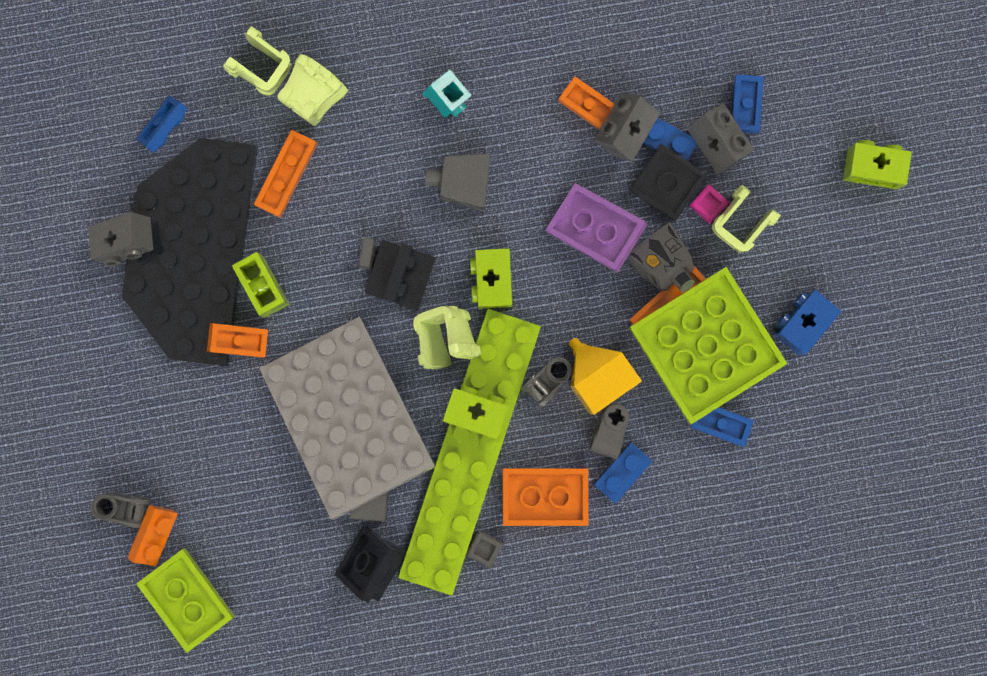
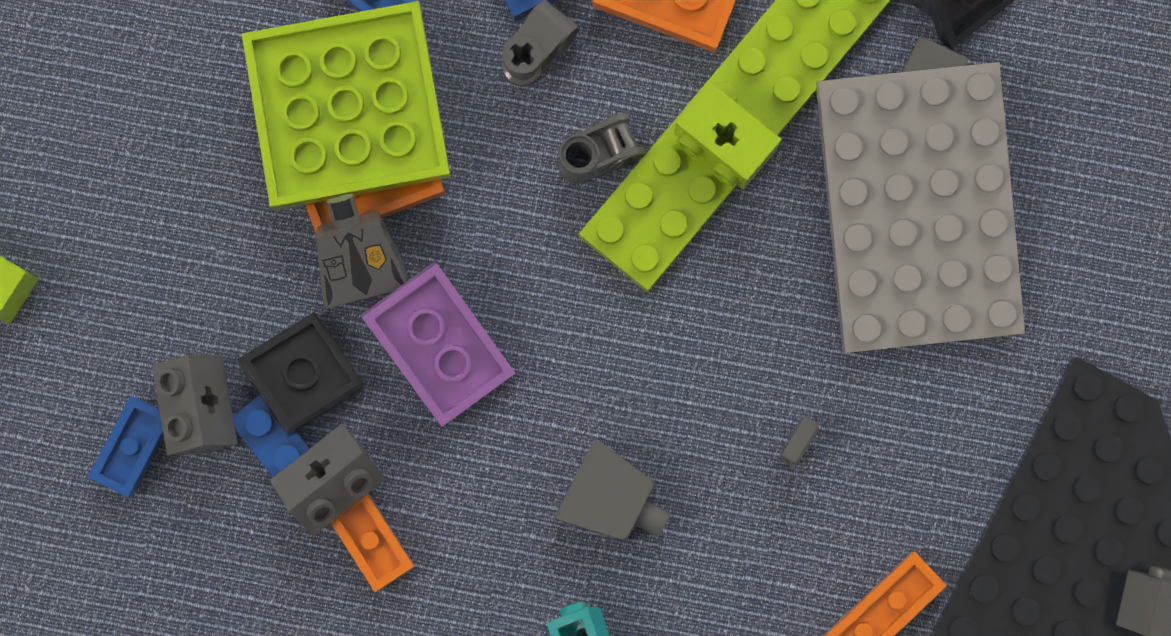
camera: 155 degrees left, 5 degrees down
(237, 340) = (1045, 384): orange plate -> none
(260, 285) = (980, 453): lime brick -> none
(400, 275) = (760, 392): black bracket -> none
(432, 345) = (751, 268): yellowish green piece -> none
(499, 263) = (624, 302): lime brick -> none
(600, 375) = (522, 119): yellow piece -> none
(709, 204) = (253, 319): dark pink tile -> none
(768, 219) = (180, 256): yellowish green piece -> none
(820, 314) = (163, 92): blue brick -> none

